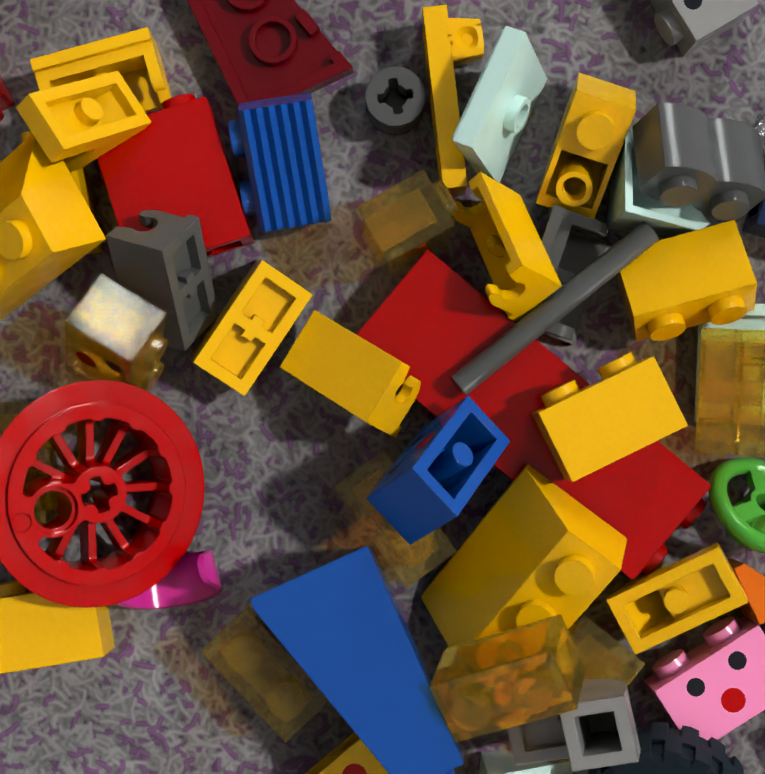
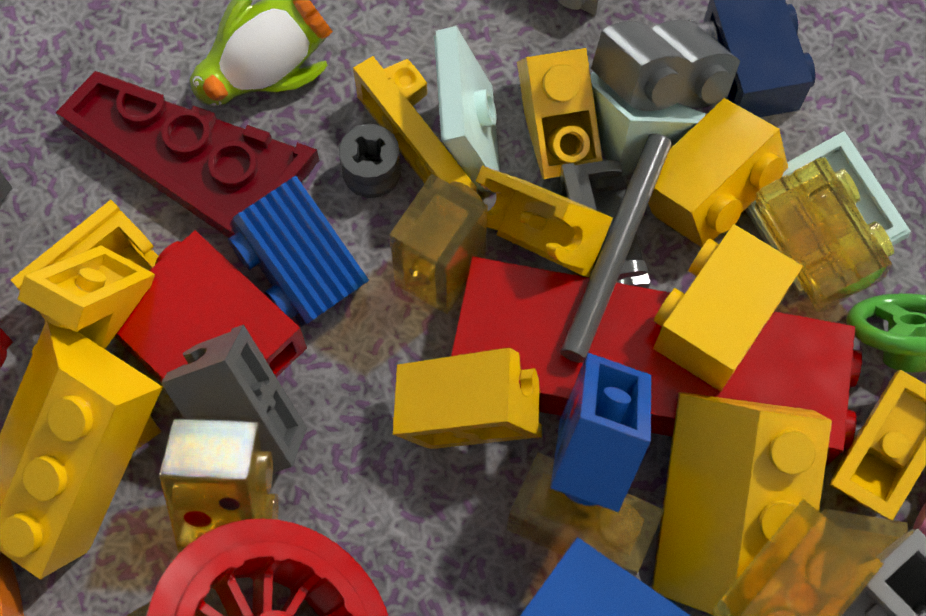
camera: 30 degrees left, 20 degrees down
(251, 327) = (344, 416): yellow hinge -> none

